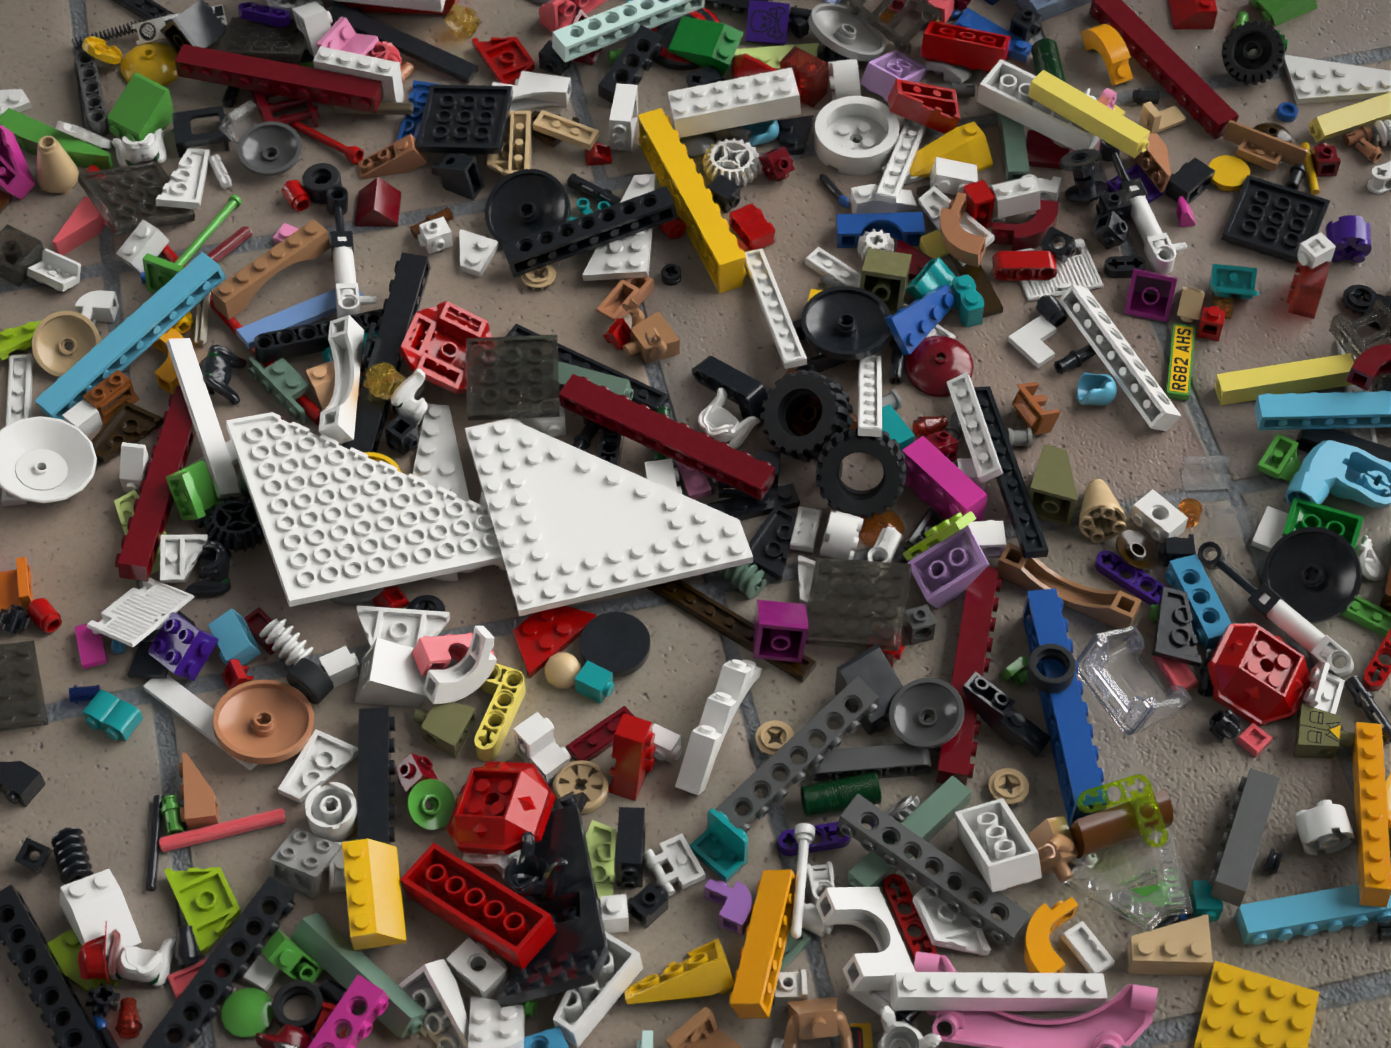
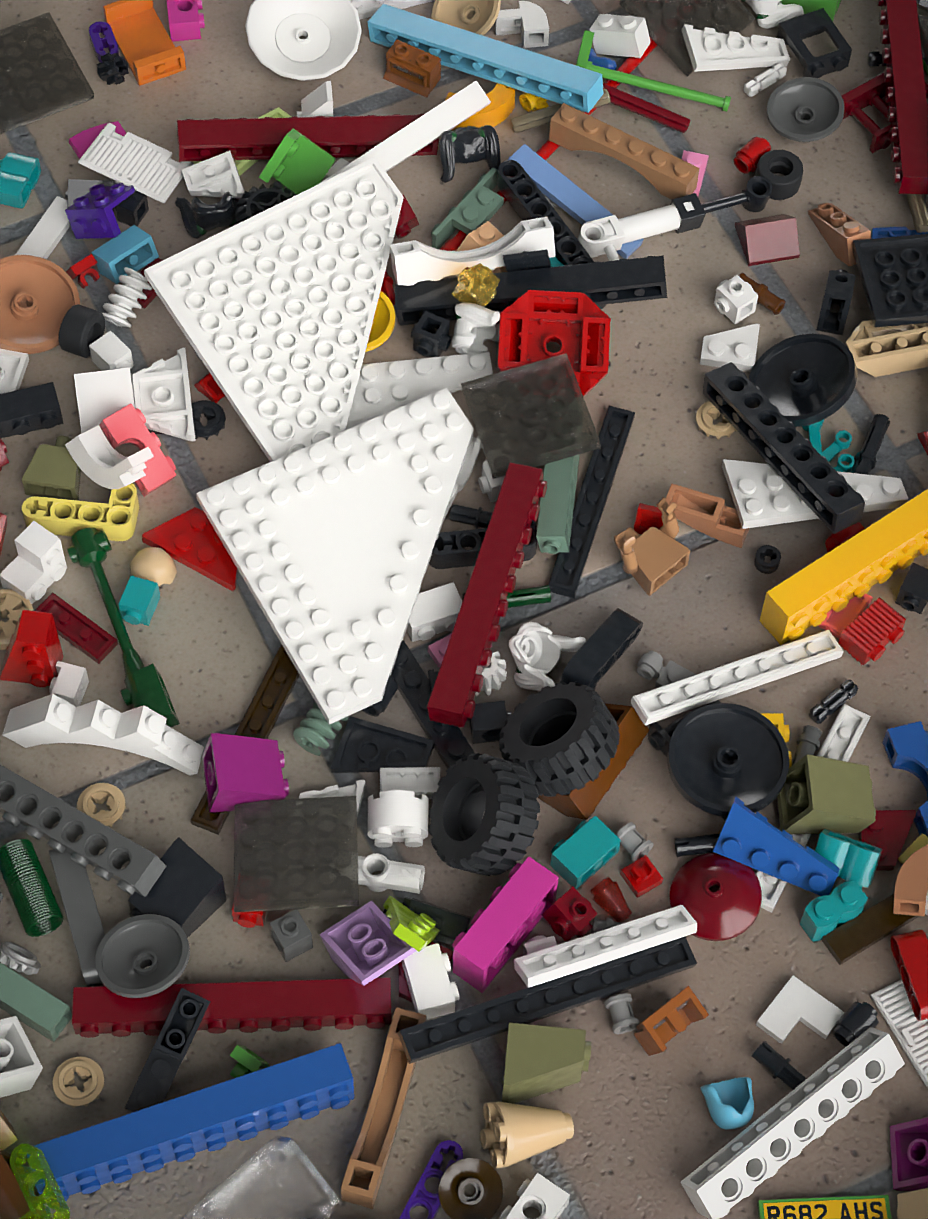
camera: 75 degrees right, 5 degrees up
(44, 615) = (124, 92): red brick -> none
(83, 417) = (373, 52): white brick -> none
(84, 693) = (37, 147): clear blue pin -> none
(126, 425) = (371, 90): dark brown wing -> none
(238, 122) = (834, 70): clear panel -> none
(352, 153) = (838, 192): red piece -> none
(615, 643) = (193, 610): black piece -> none
(677, 690) = (142, 683): none -> dark green bar
(755, 353) = (651, 667): none -> light grey plate
(800, 265) = (833, 701): none -> black axle
(870, 396) = (598, 801): white tile -> none
(871, 529) = (439, 884): clear orange dish -> none
(874, 240) = (901, 779): white gear -> none
(913, 405) = (641, 876): none -> red tile
(1055, 652) = (211, 1060): black tyre -> none

